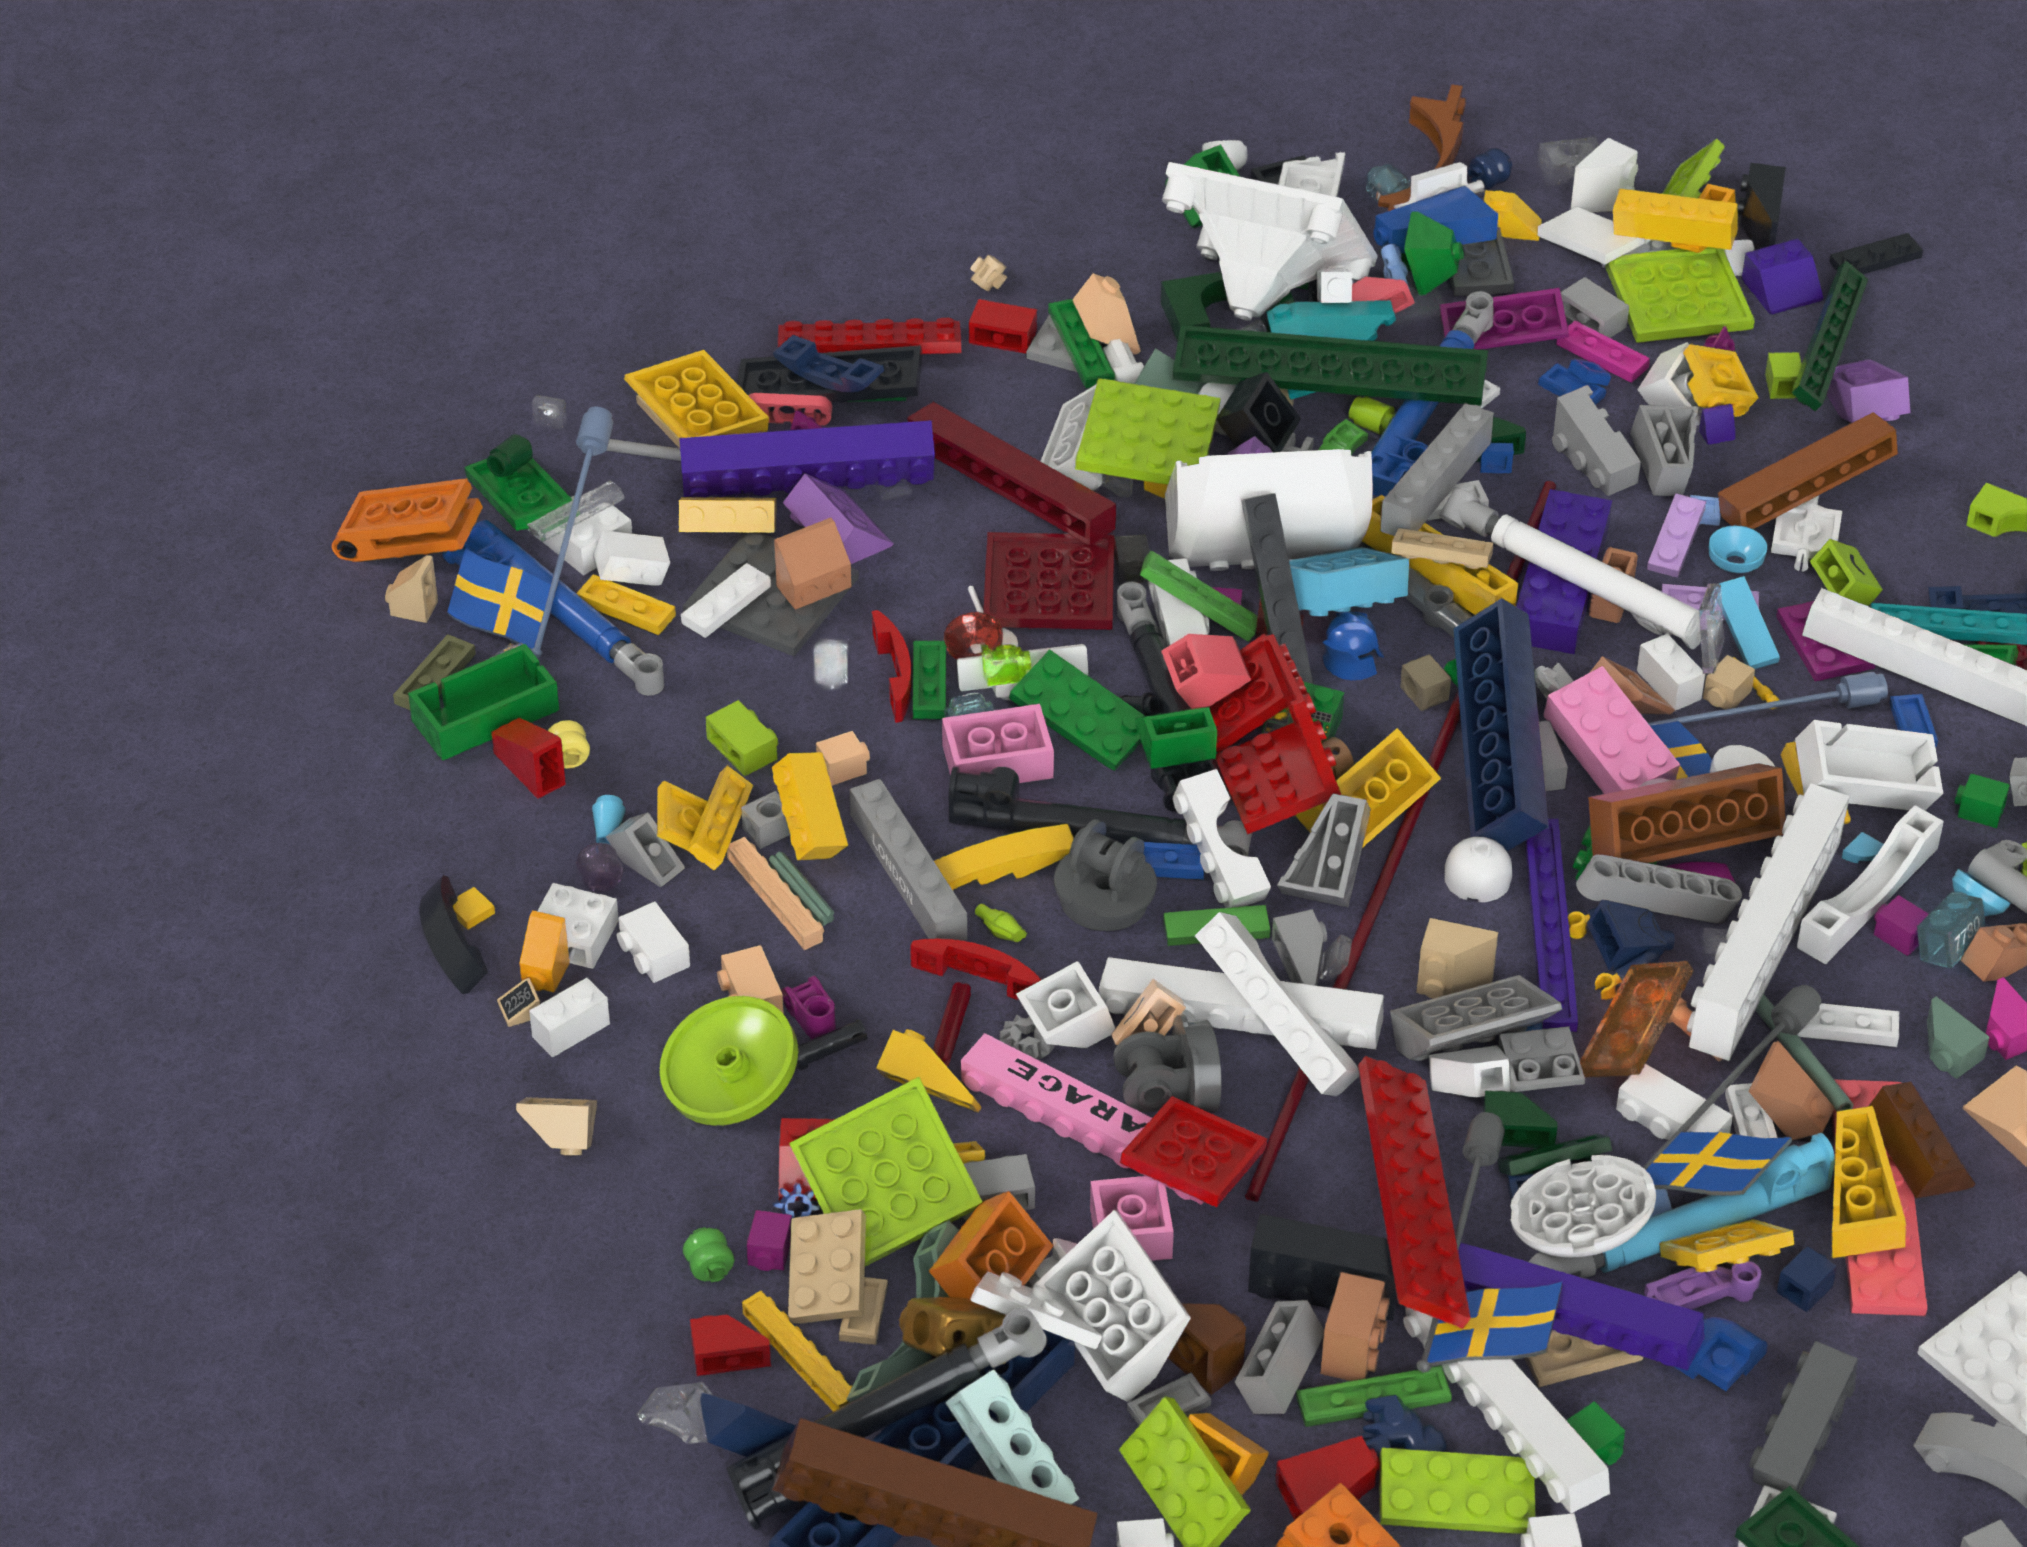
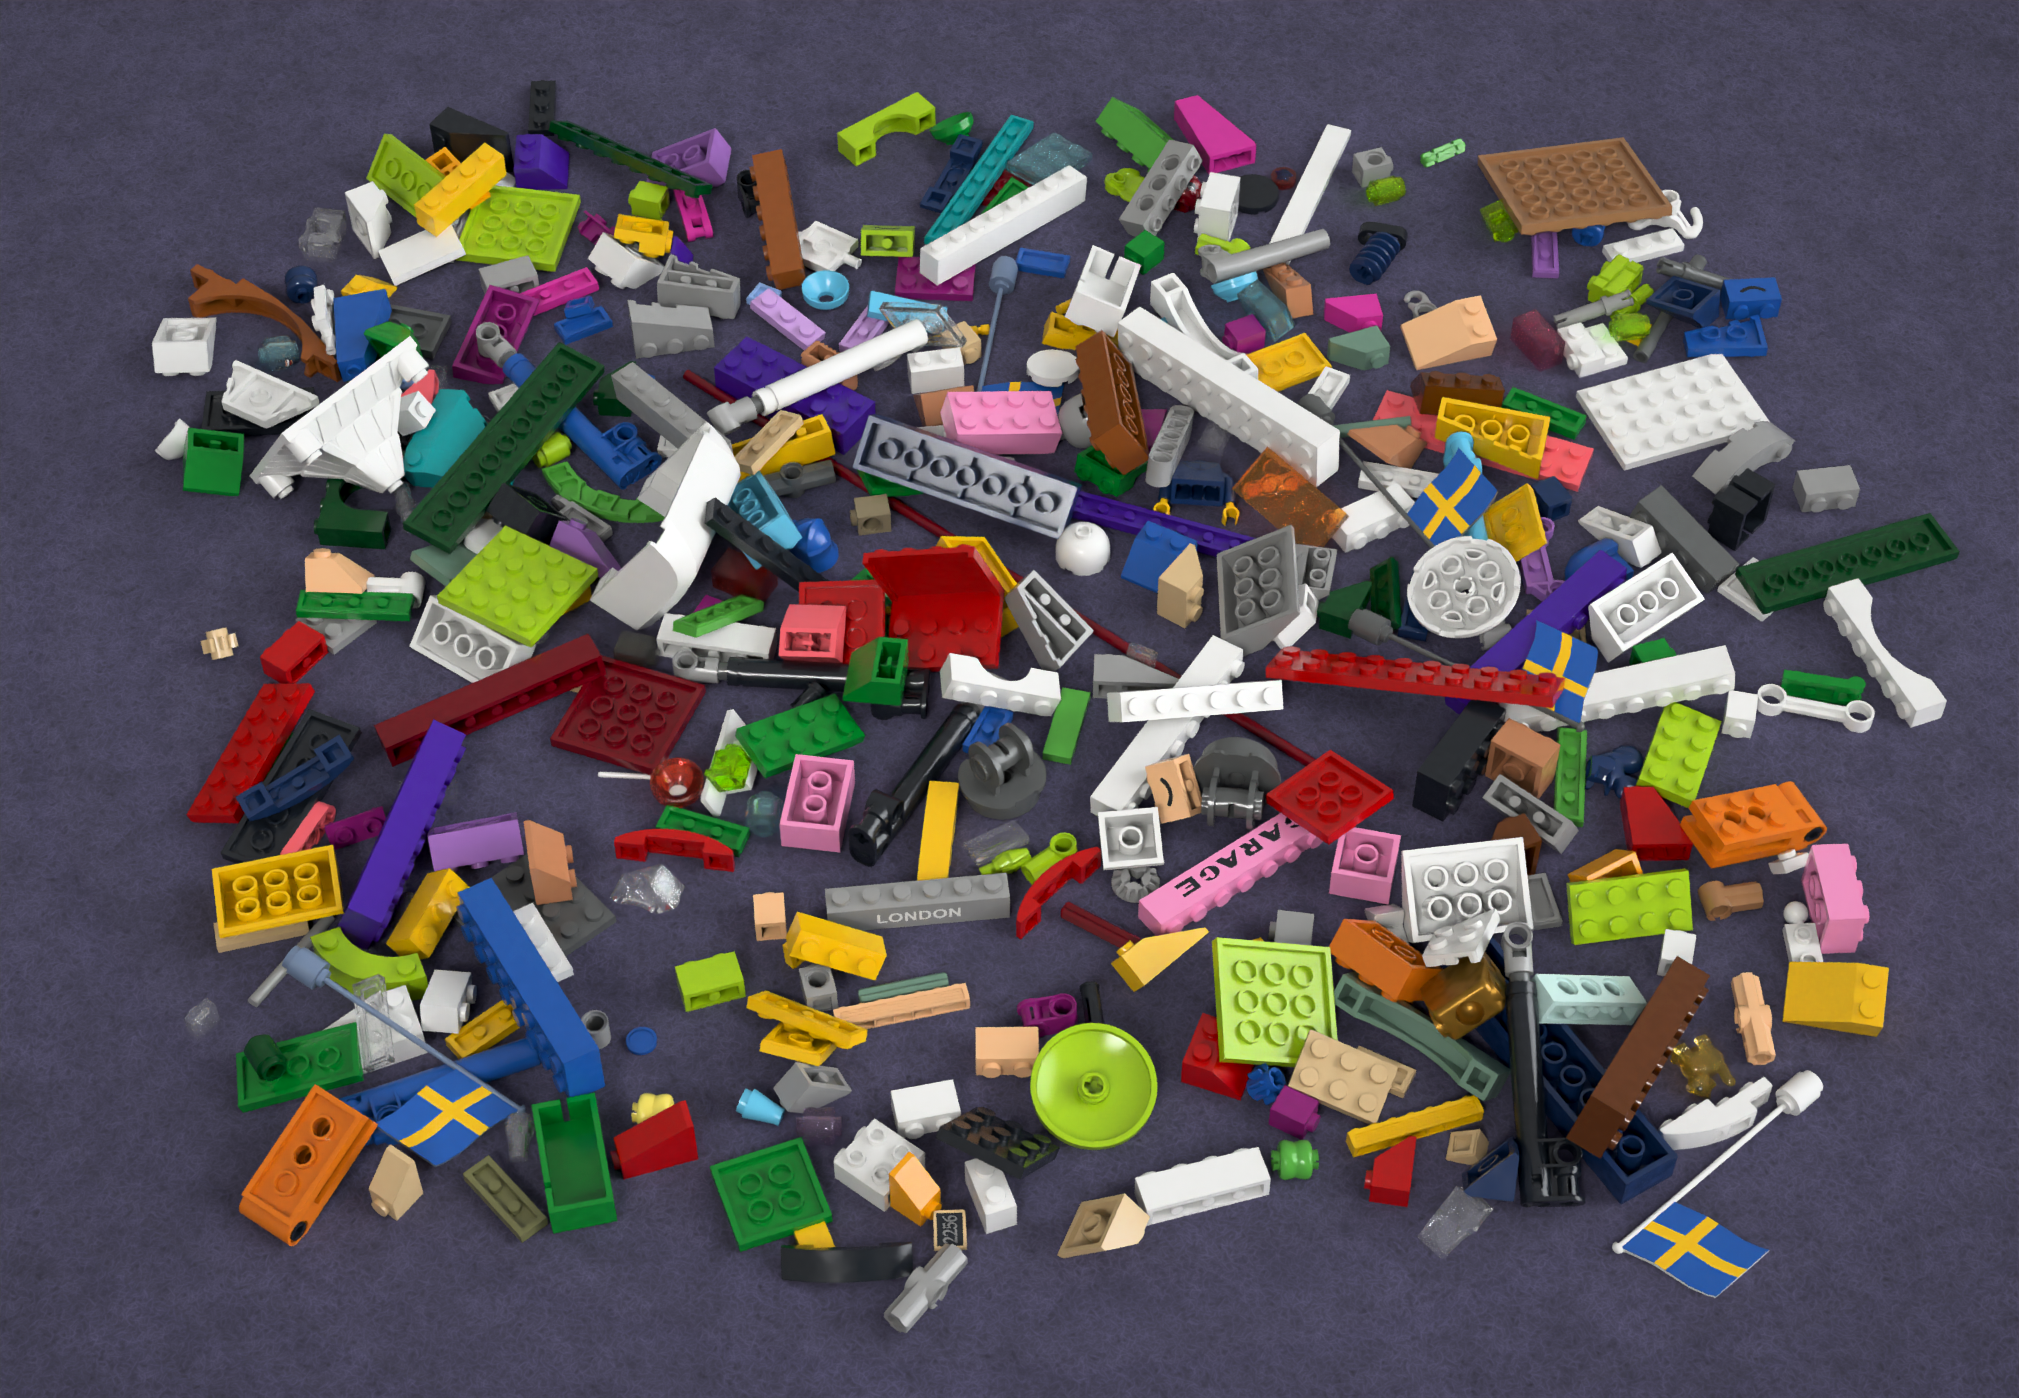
camera: 70 degrees left, 5 degrees up
(443, 1001) = (925, 1287): none -> light grey piece
(510, 857) = (770, 1194): none -> green plate
(620, 998) = (998, 1142): none -> black plate
(646, 485) = (353, 965): none -> lime brick
(646, 595) = (530, 990): none -> blue brick
(646, 1185) = (1202, 1185): none -> white brick
(657, 716) = (641, 1040): none -> blue piece
(792, 1406) = (1467, 1146): none -> tan slope
(1025, 908) = (992, 843): none -> clear tile
(1030, 953) = (1060, 847): none -> lime piece
(1357, 120) = (184, 346): none -> white slope
(1512, 922) = (1152, 554): none -> blue slope
(1660, 1394) = (1642, 607): none -> white slope
(1778, 1362) = (1635, 538): none -> white slope
(1789, 417) = (692, 214): none -> dark pink plate
(1886, 977) = (1289, 362): none -> yellow tile
(1887, 1453) = (1740, 507): none -> black piece
(1958, 1245) = (1562, 419): none -> green plate

